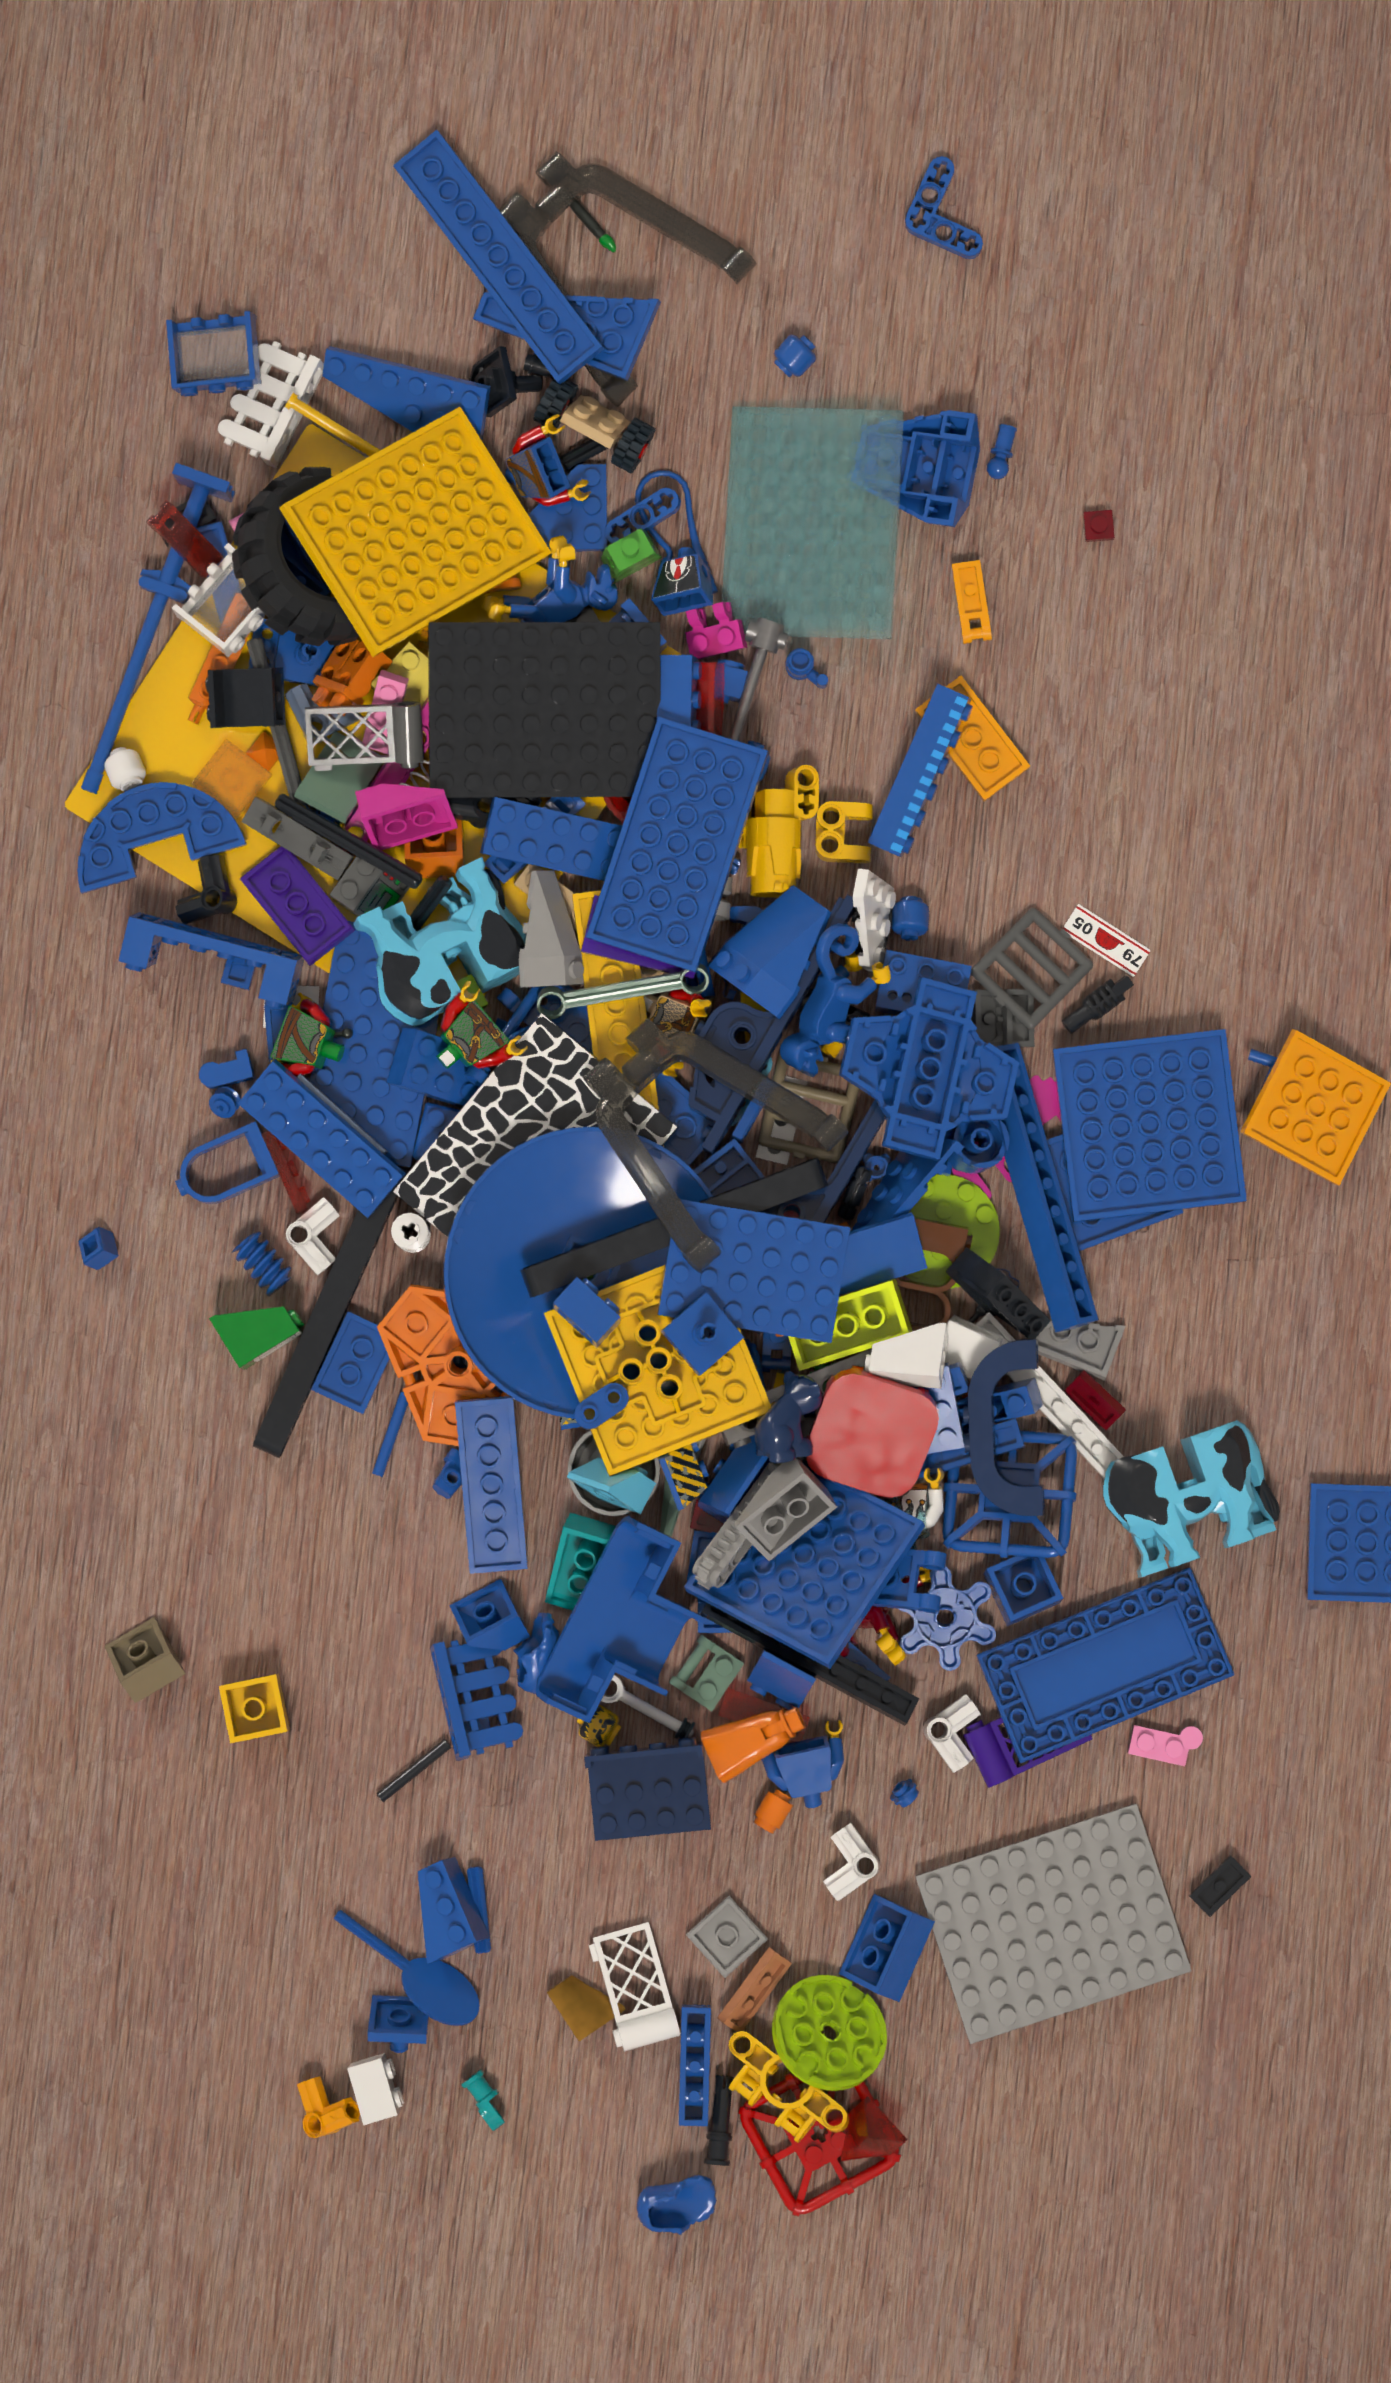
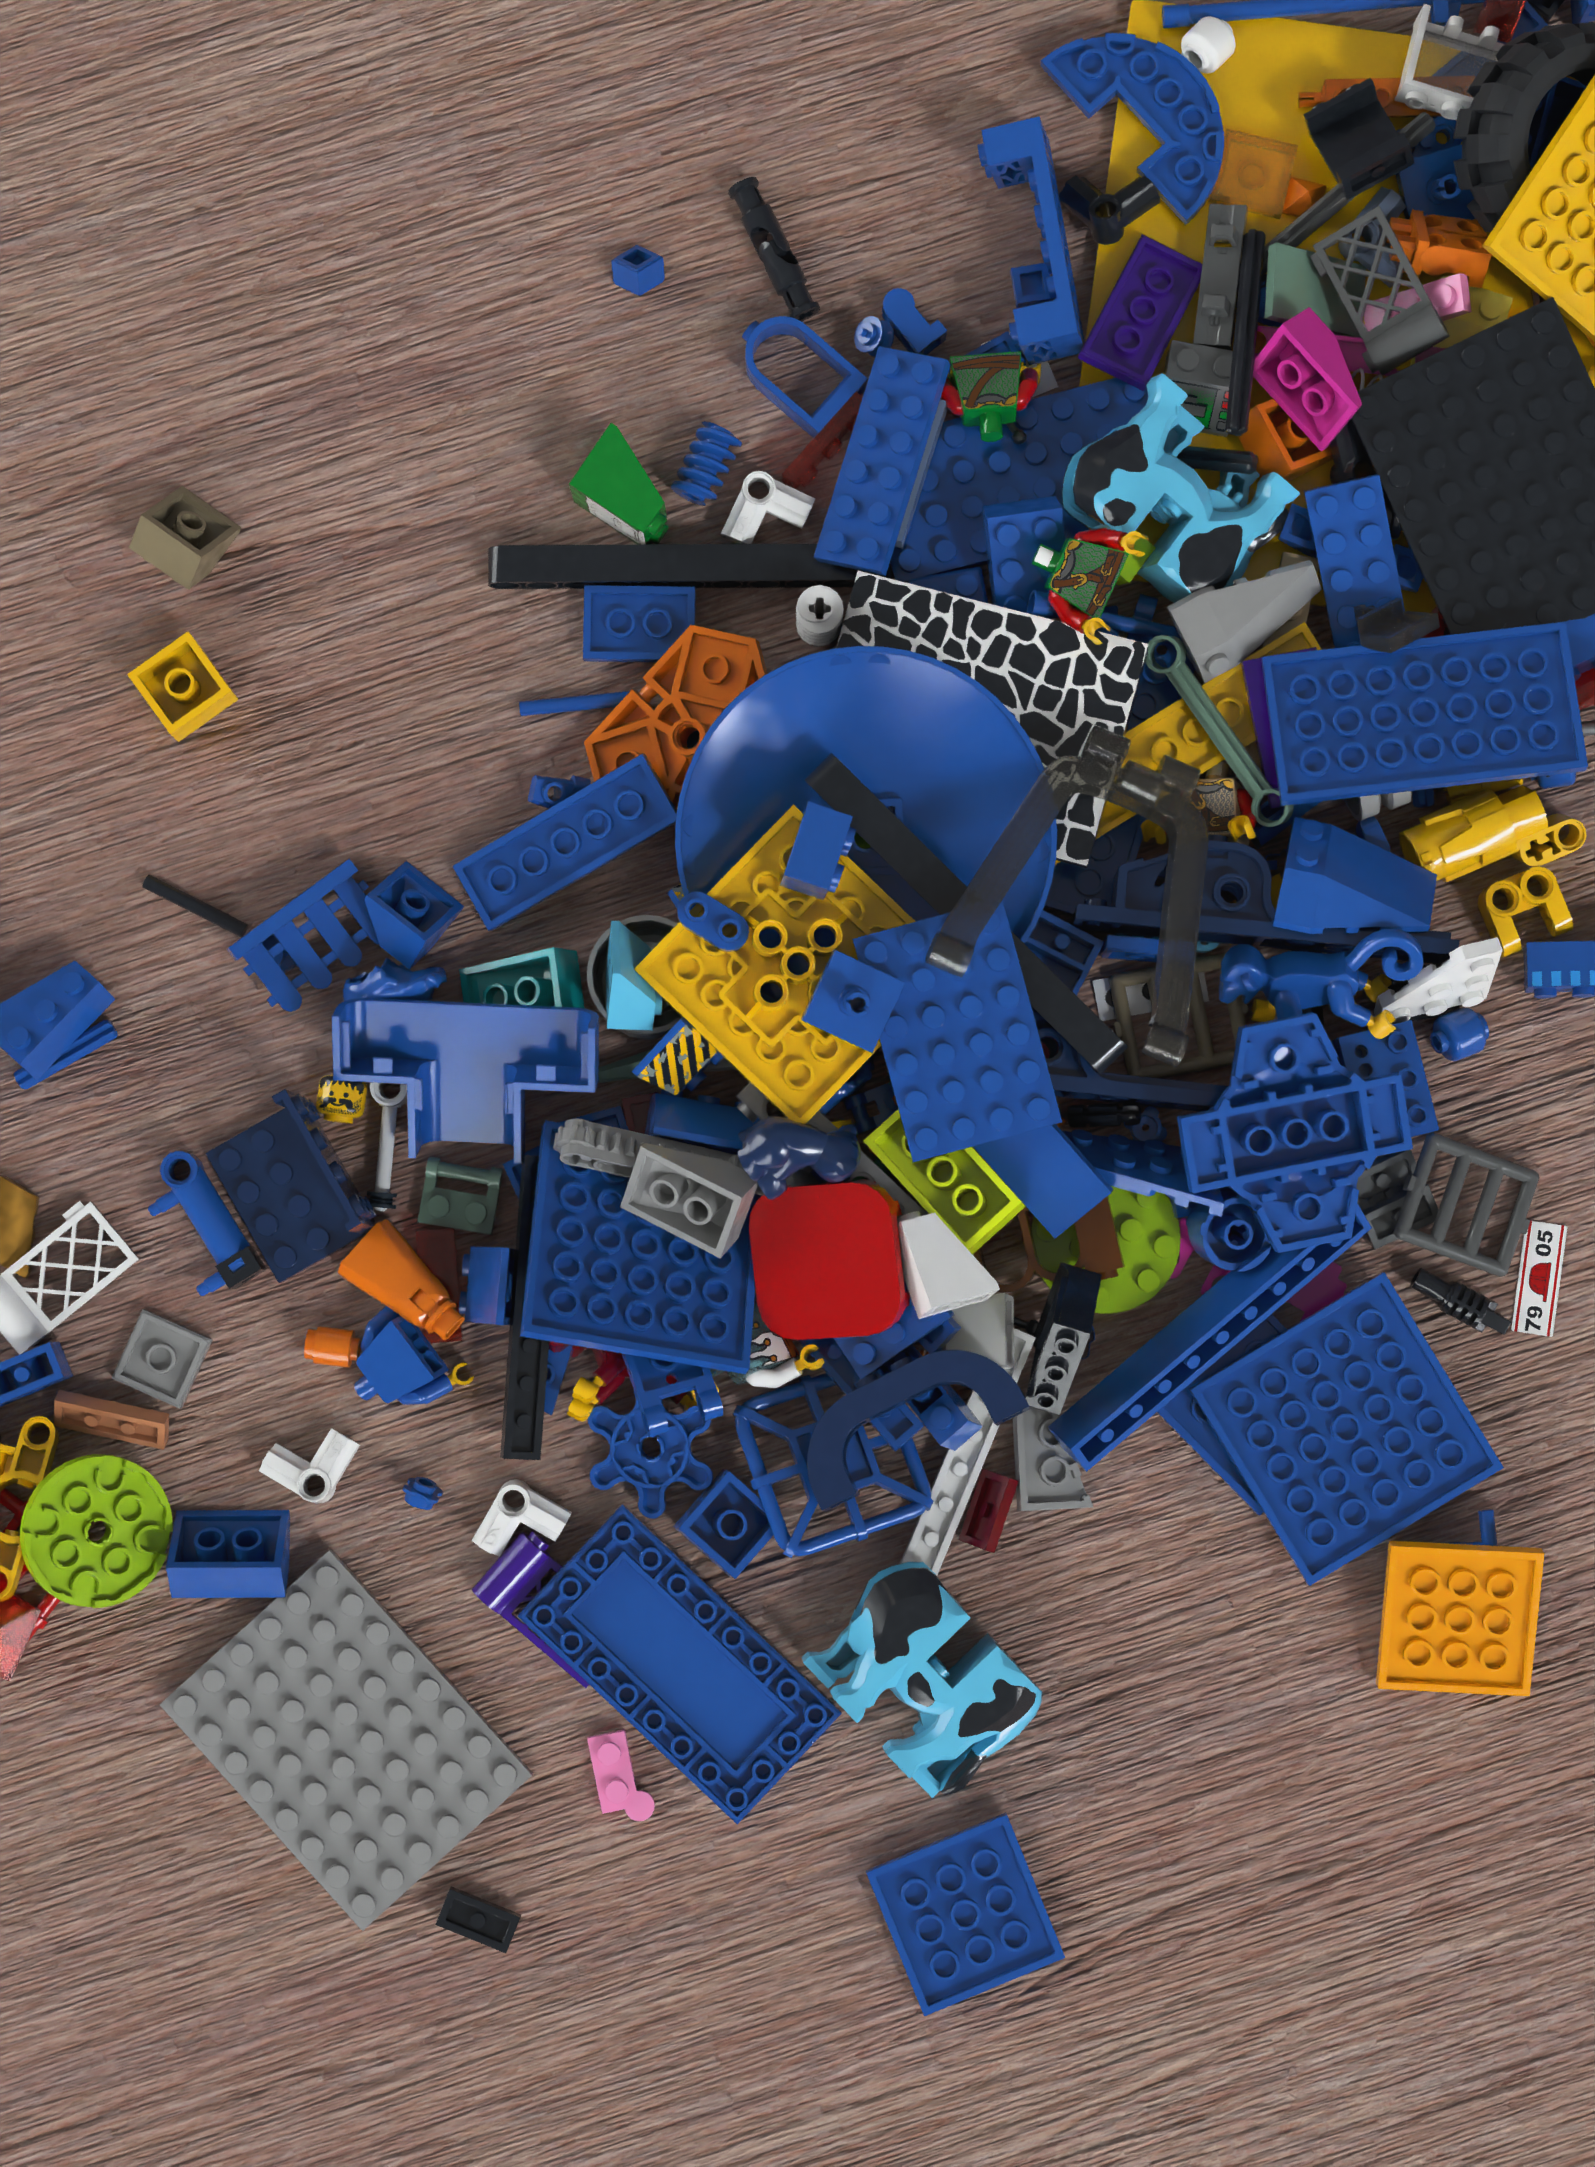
camera: 60 degrees right, 0 degrees up
(133, 1144) = (775, 254): none -> black piece
(605, 837) = (1391, 628): none -> clear smoke slope
(647, 1856) = (234, 1256): none -> blue piece

